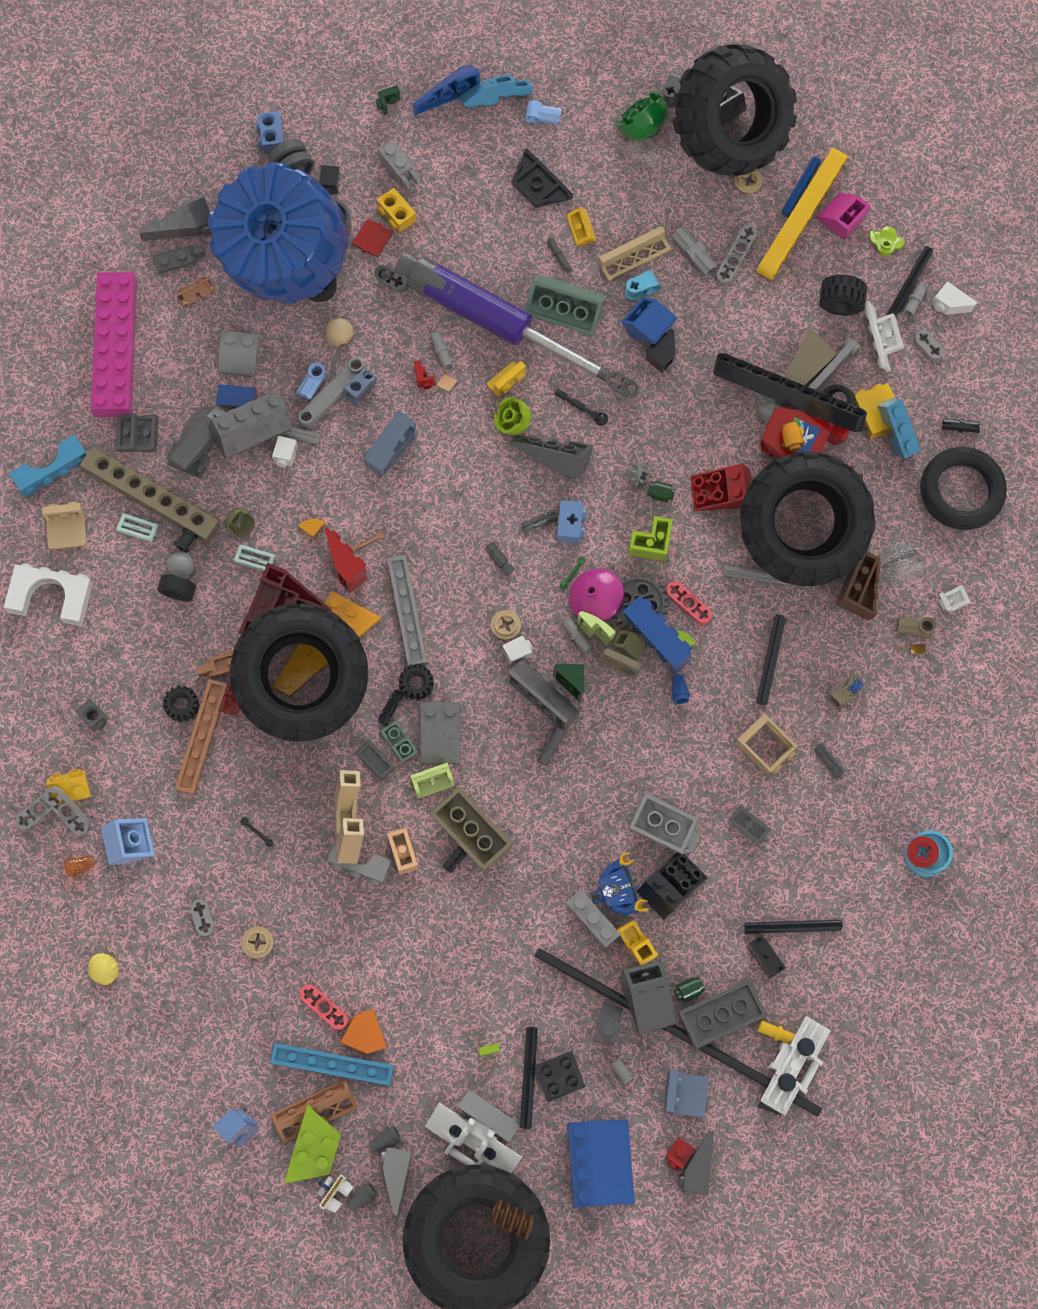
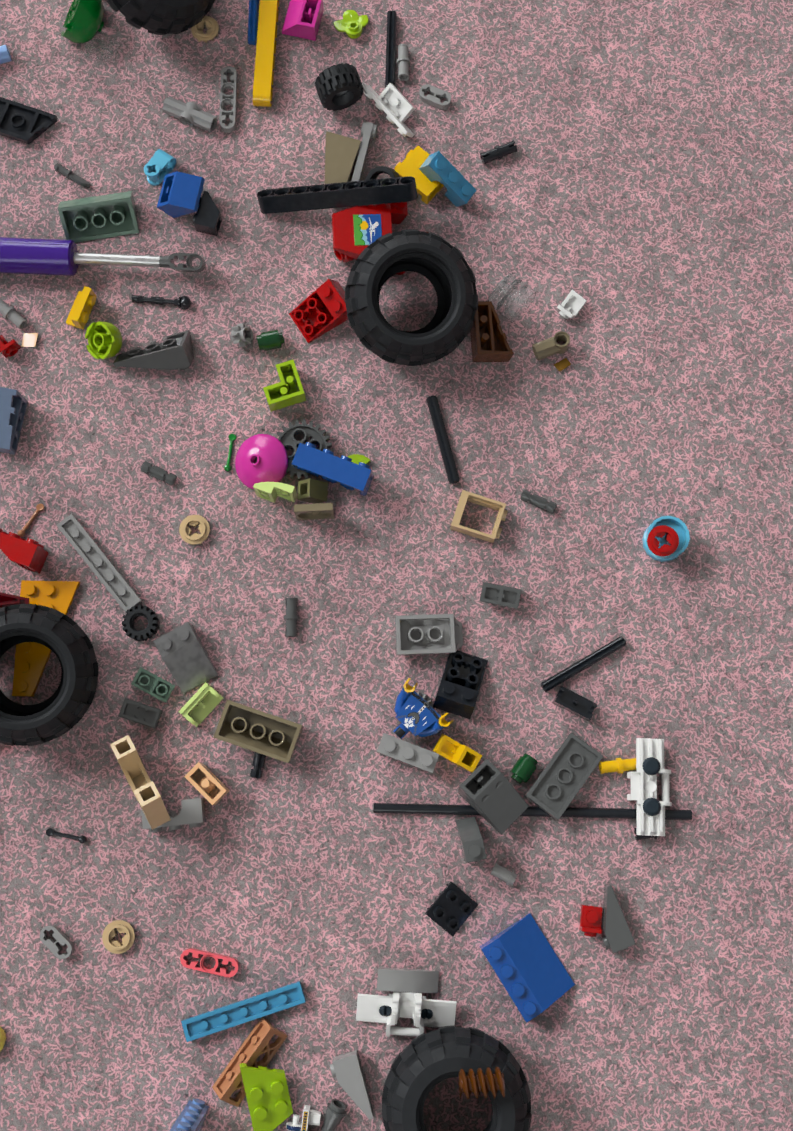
camera: 25 degrees left, 5 degrees up
(364, 1034) = (258, 967): orange slope -> none
(387, 1138) = (328, 1050): dark grey cone -> none
(390, 707) = (129, 658): black axle -> none
(489, 1050) = (377, 920): lime tile -> none
(517, 650) = (216, 547): white brick -> none
(528, 1078) = (425, 925): black axle -> none
(539, 521) = (176, 421): dark grey axle -> none
(543, 695) = (259, 575): flat silver slope -> none
(571, 511) = (205, 418): medium blue brick -> none
(571, 678) = (277, 547): dark green slope -> none
(577, 636) = (262, 506): light grey pin -> none
(581, 227) = (78, 141): yellow slope -> none
(630, 248) = (133, 137): tan fence -> none
(680, 691) = (377, 507): blue cone -> none
(686, 1094) = (569, 863): sand blue bracket -> none
(688, 595) = (360, 424): coral beam -> none
(749, 573) = (385, 373): light grey axle -> none
(767, 408) = (325, 220): light grey piece -> none
(792, 436) = (360, 232): light orange brick -> none
(845, 691) = (521, 434): dark tan leg -> none
(953, 301) = (436, 47): white slope -> none
(985, 466) = (536, 176): black tyre -> none

